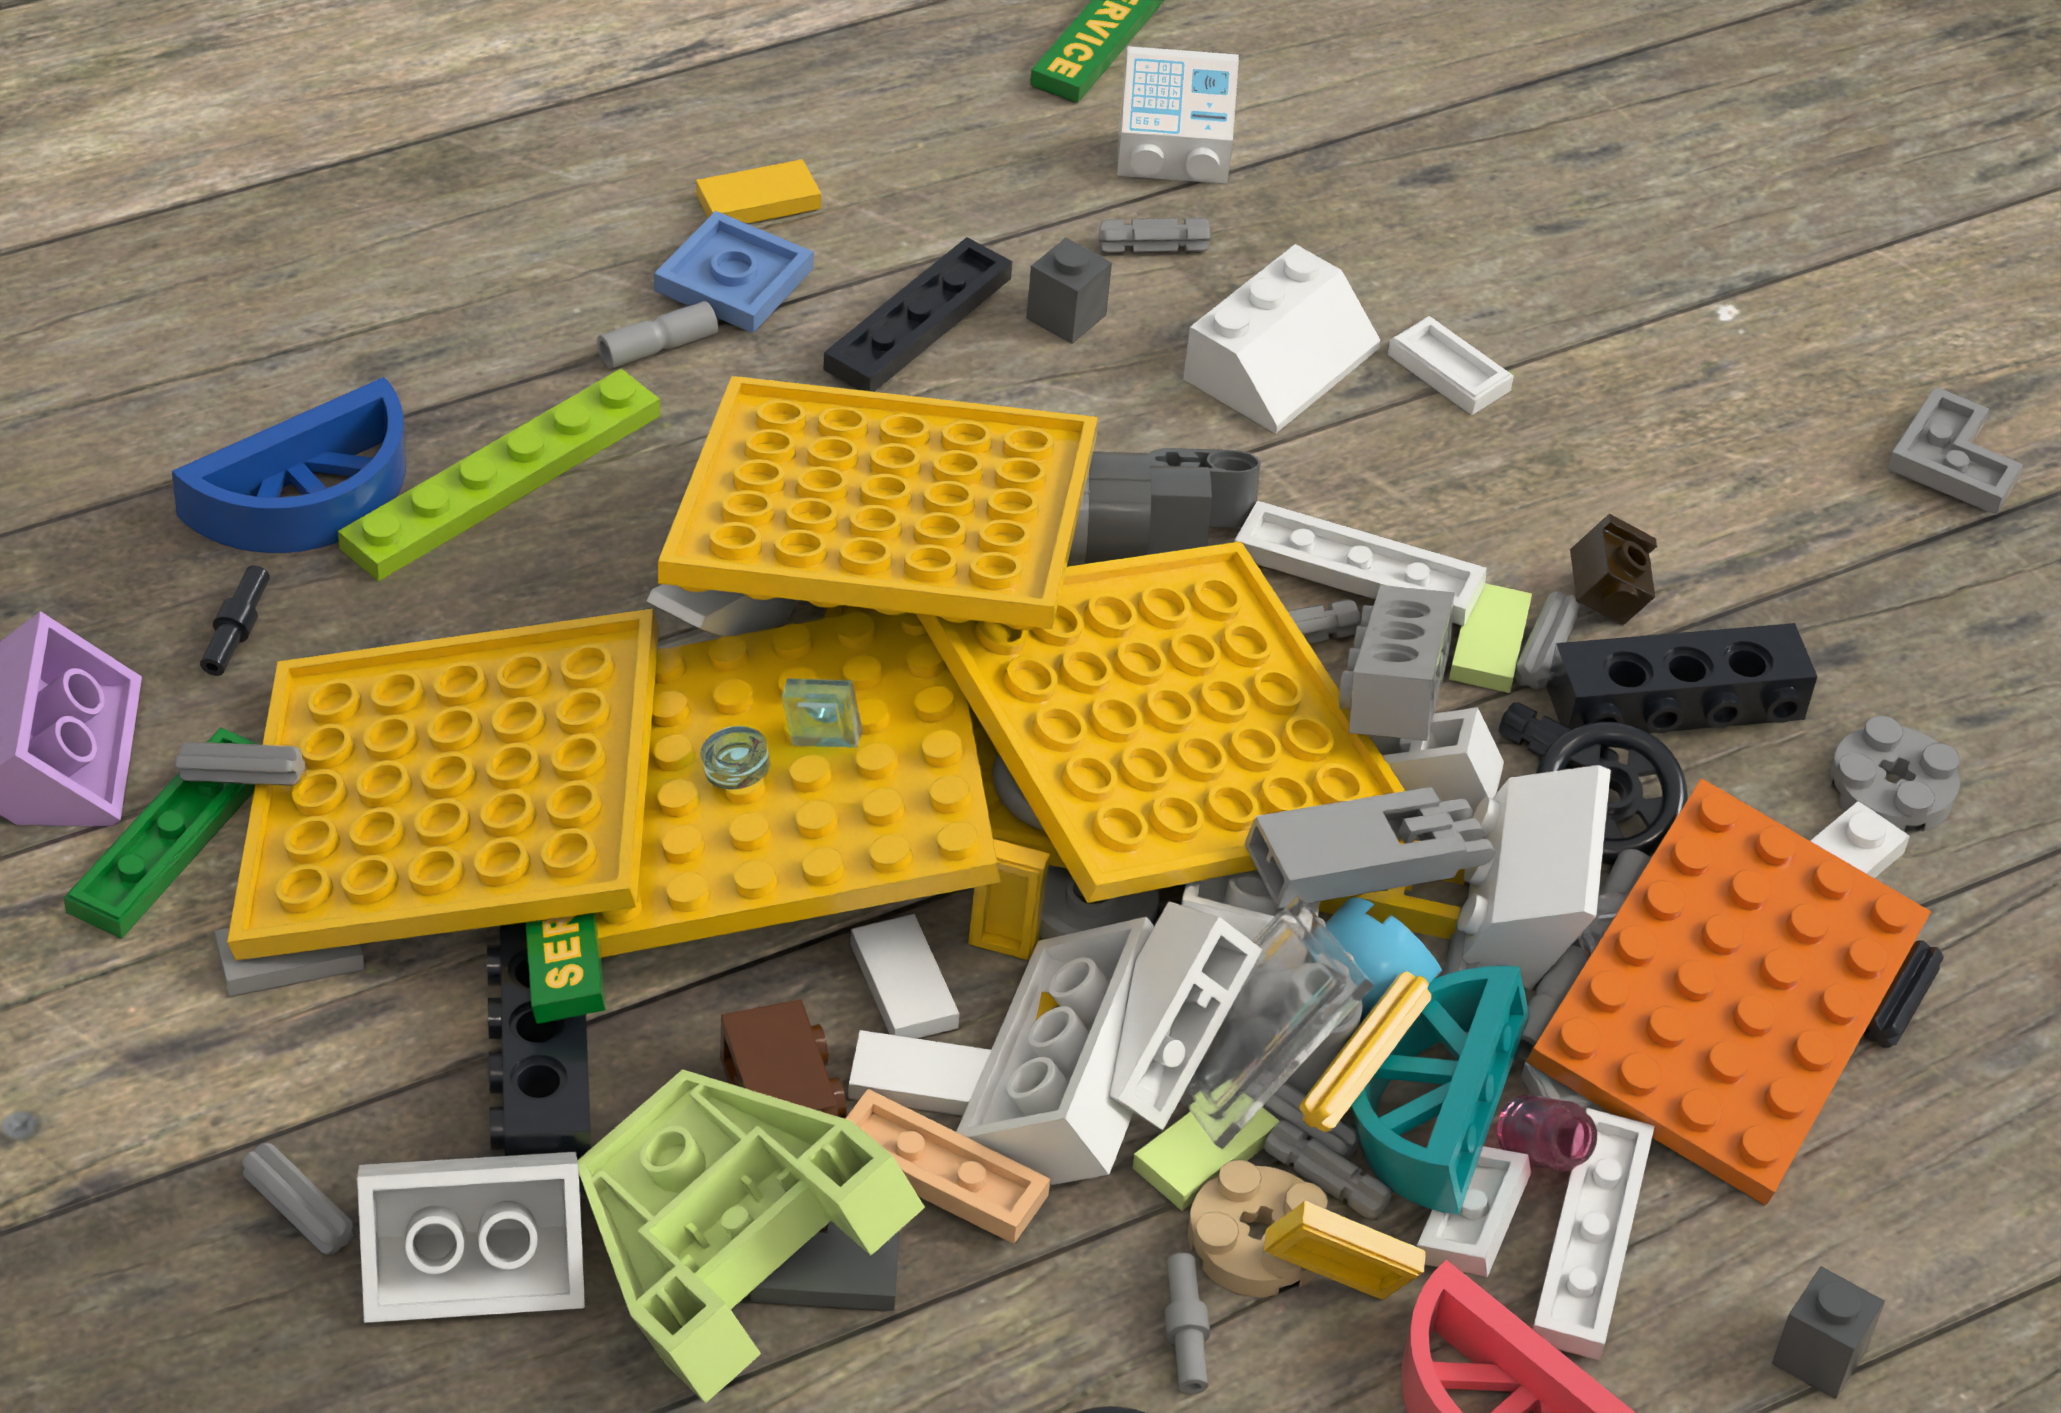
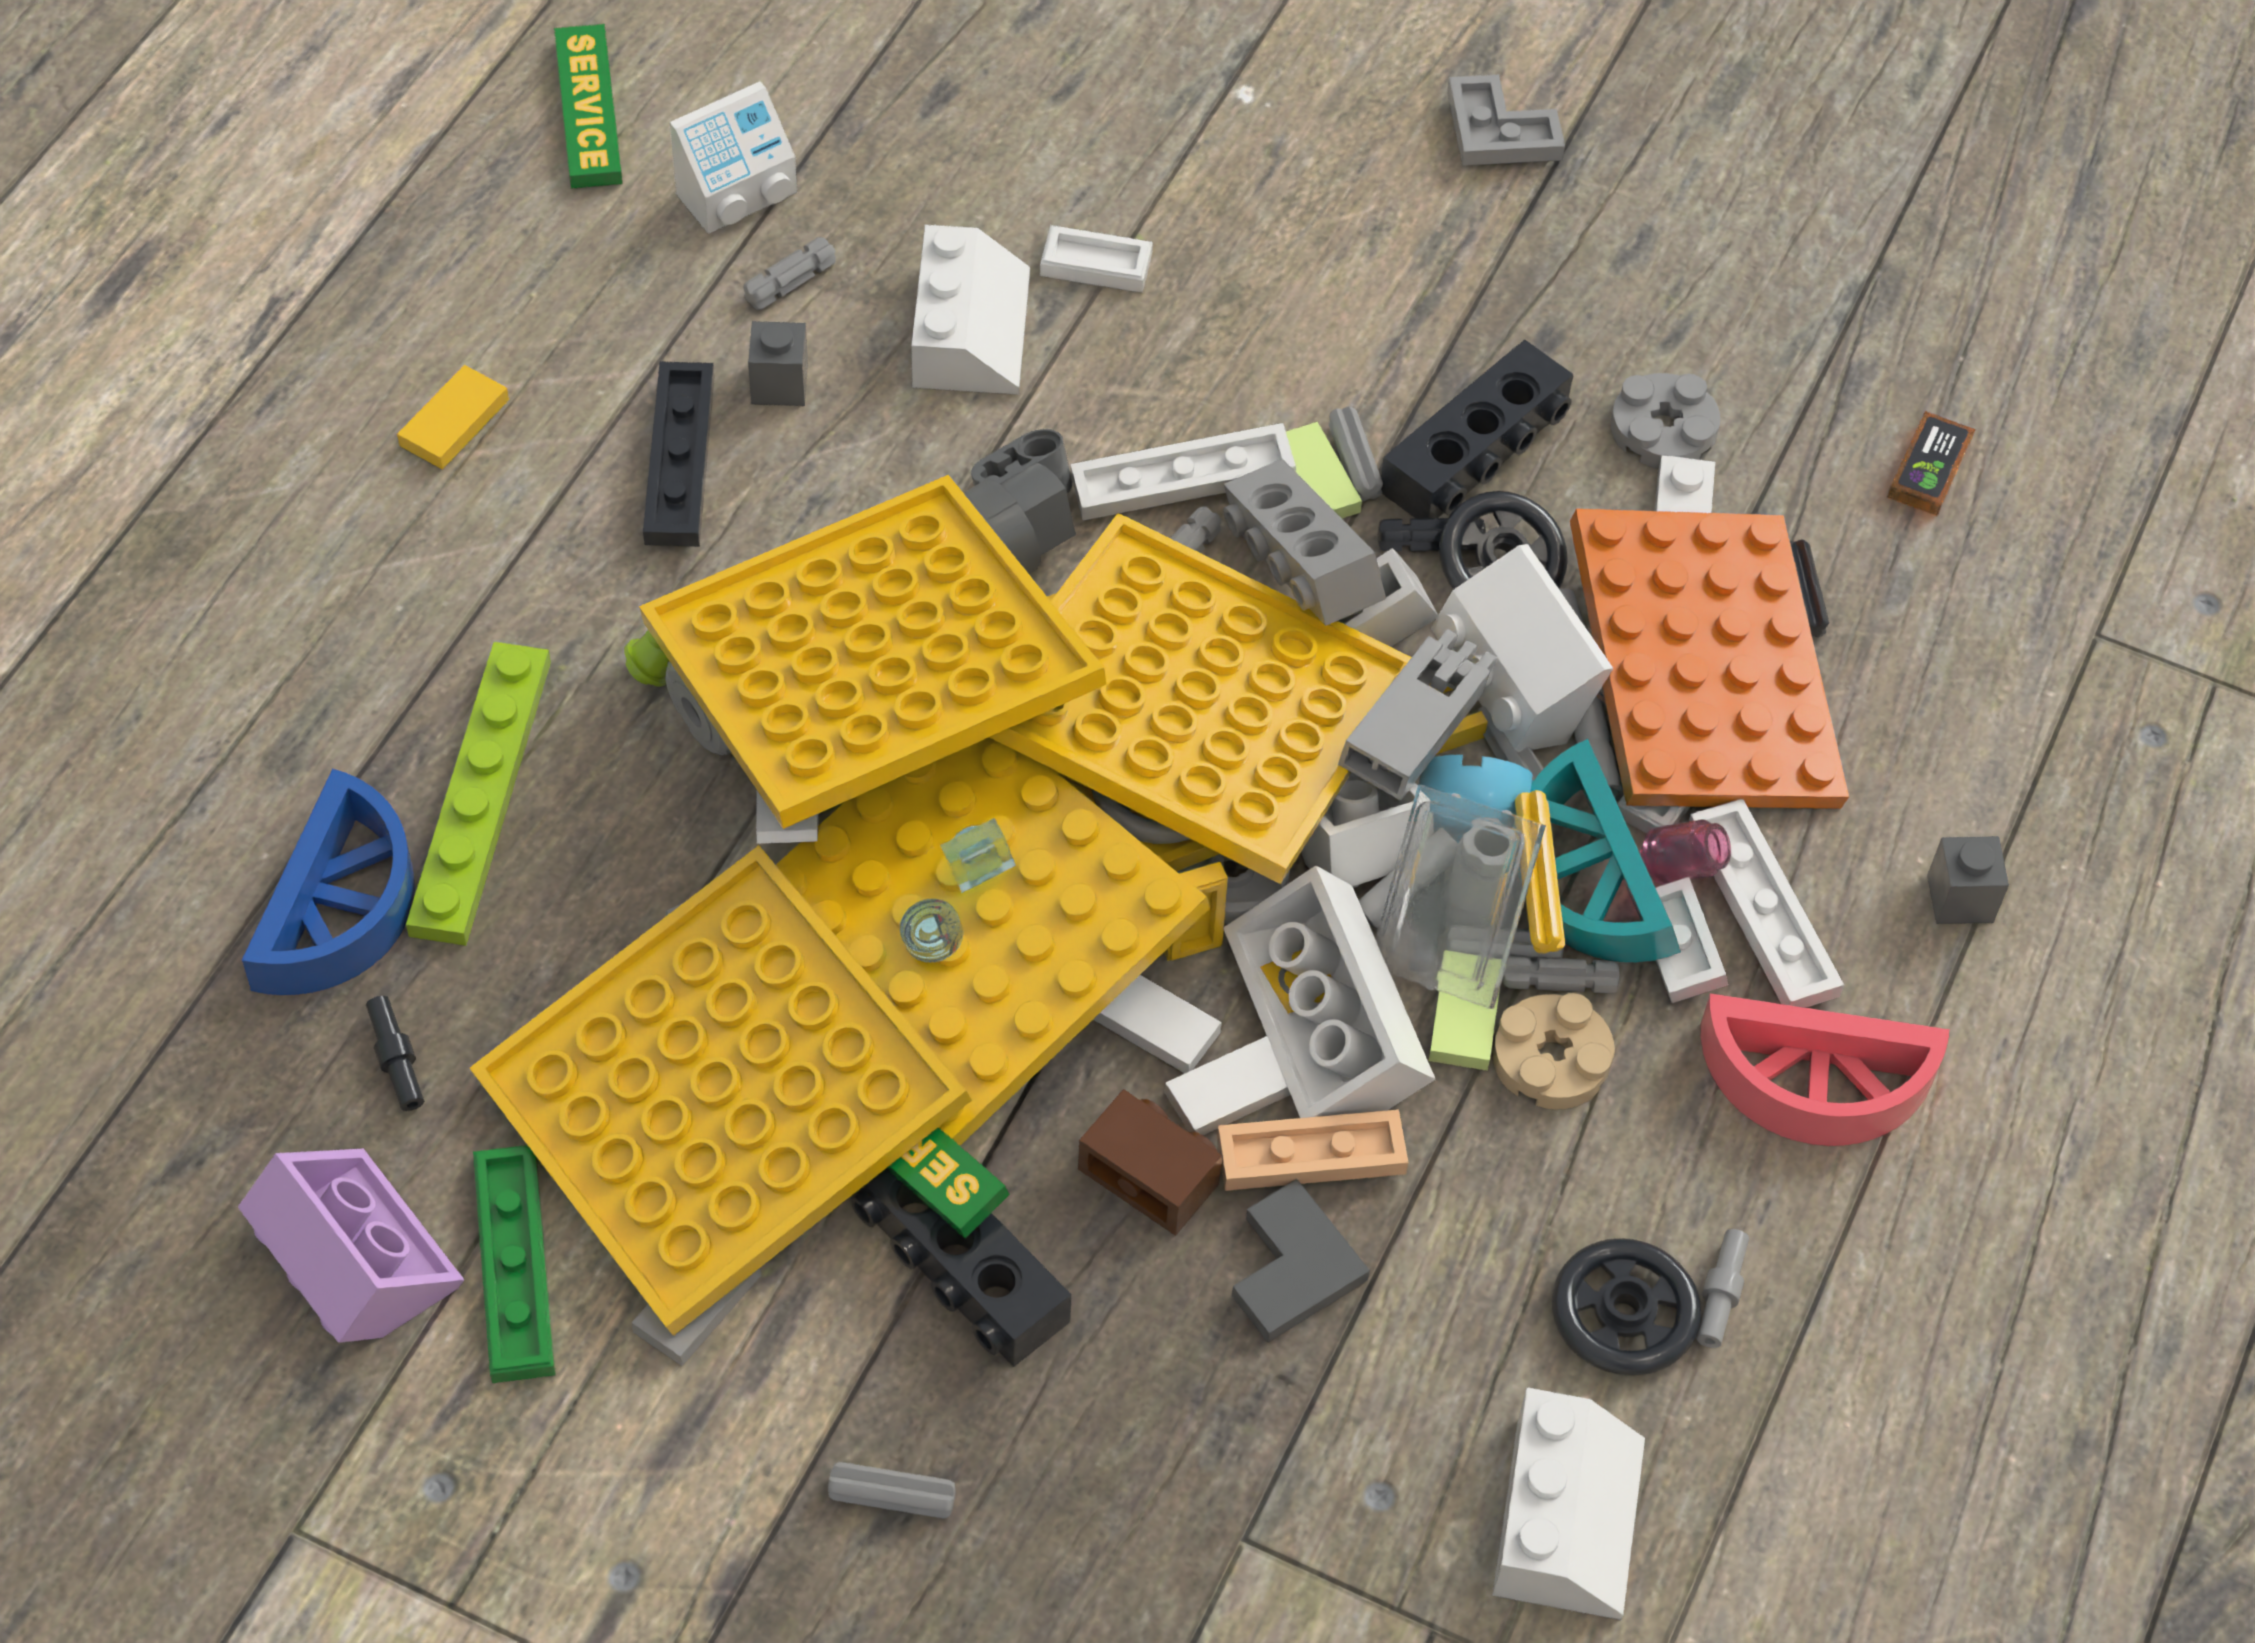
camera: 35 degrees left, 10 degrees up
(240, 763) = (535, 1174): light grey axle -> none
(470, 1236) = (1046, 1430): white slope -> none
(664, 332) = (489, 597): light grey piece -> none
(714, 1195) = (1199, 1281): yellowish green wedge -> none
(735, 270) = (502, 500): medium blue plate -> none
(1176, 1006) = (1388, 911): white slope -> none
(1187, 1323) = (1569, 1154): light grey bar -> none
(1344, 1250) = (1639, 1032): yellow tile -> none
(1614, 569) = (1362, 368): dark brown brick -> none

